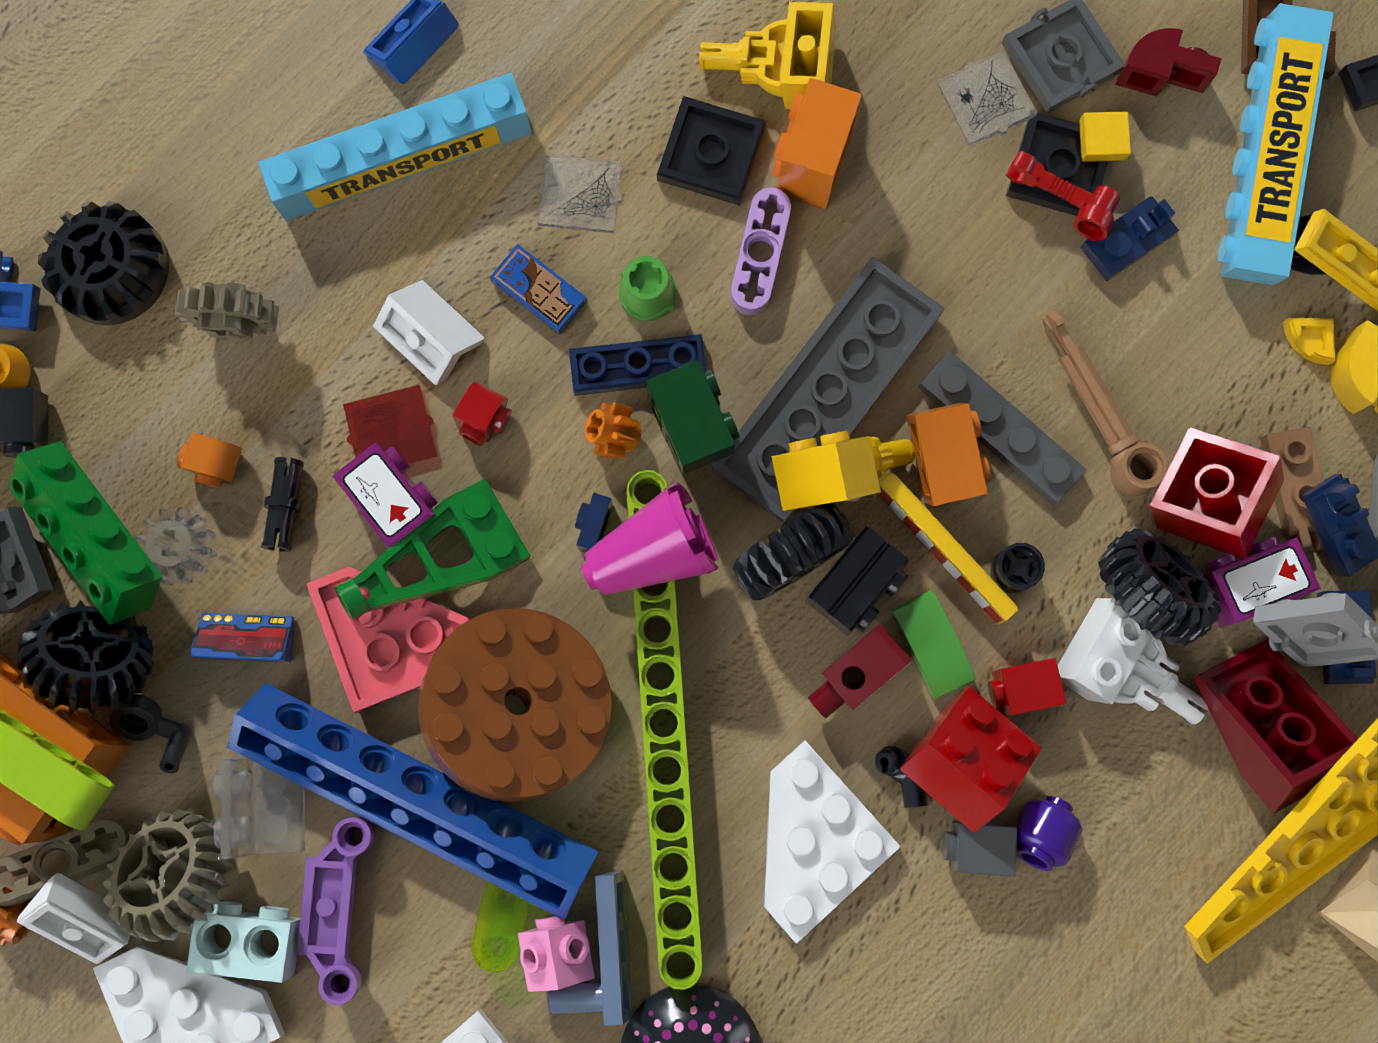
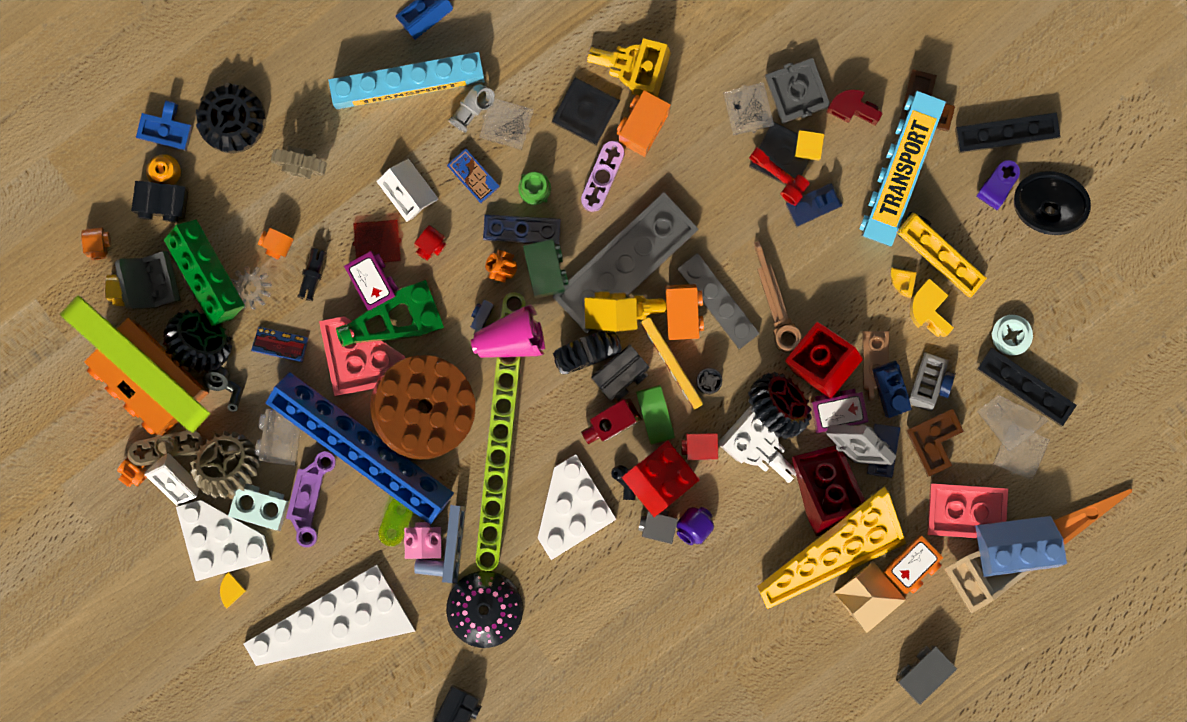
camera: 10 degrees right, 5 degrees up
(515, 174) = (470, 107): none -> light grey connector

